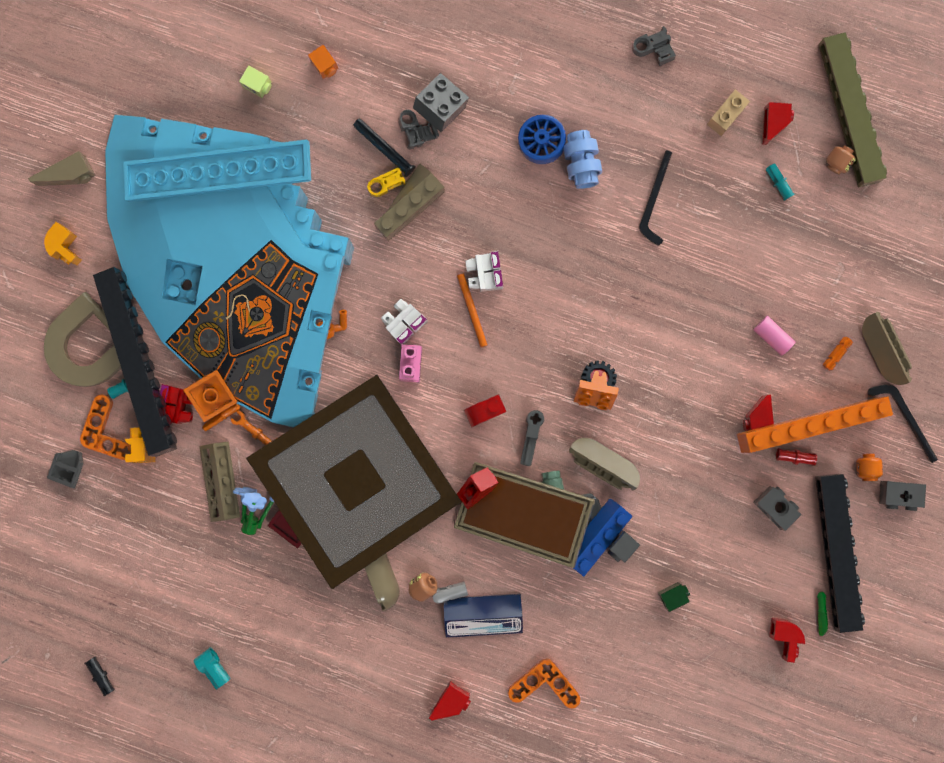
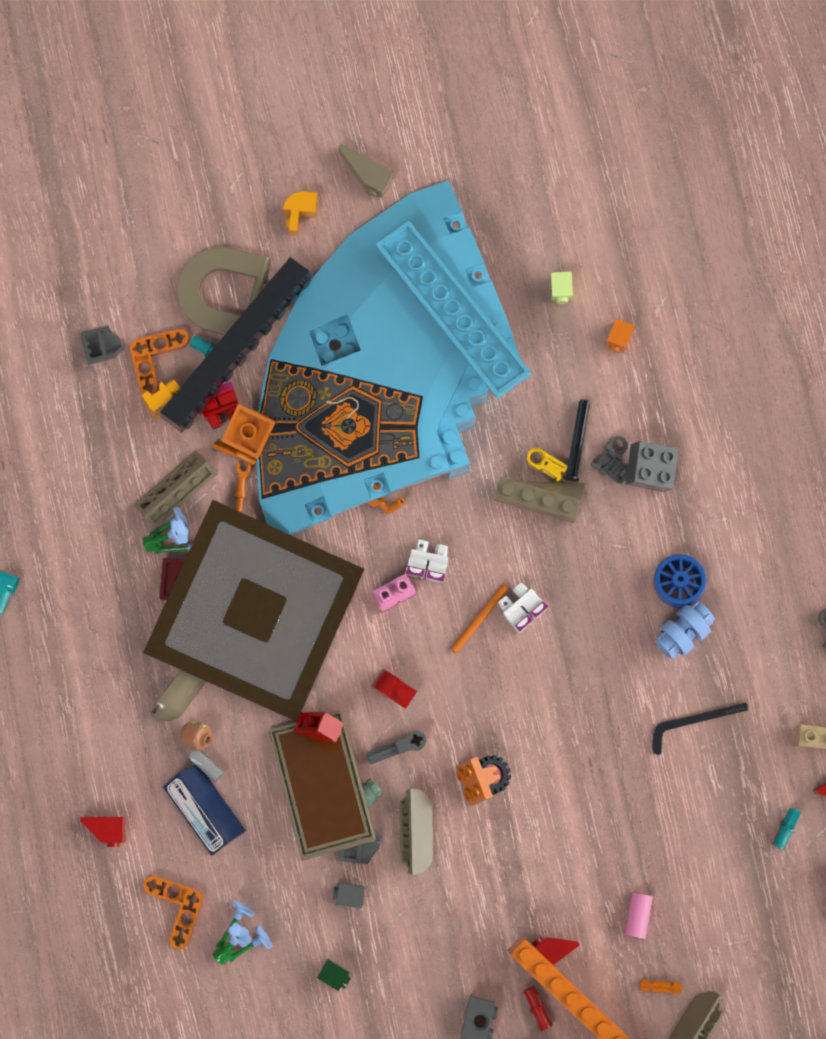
camera: 50 degrees right, 5 degrees down
(599, 651) = (240, 936): none -> light blue plant
(600, 534) = (346, 868): blue brick -> none

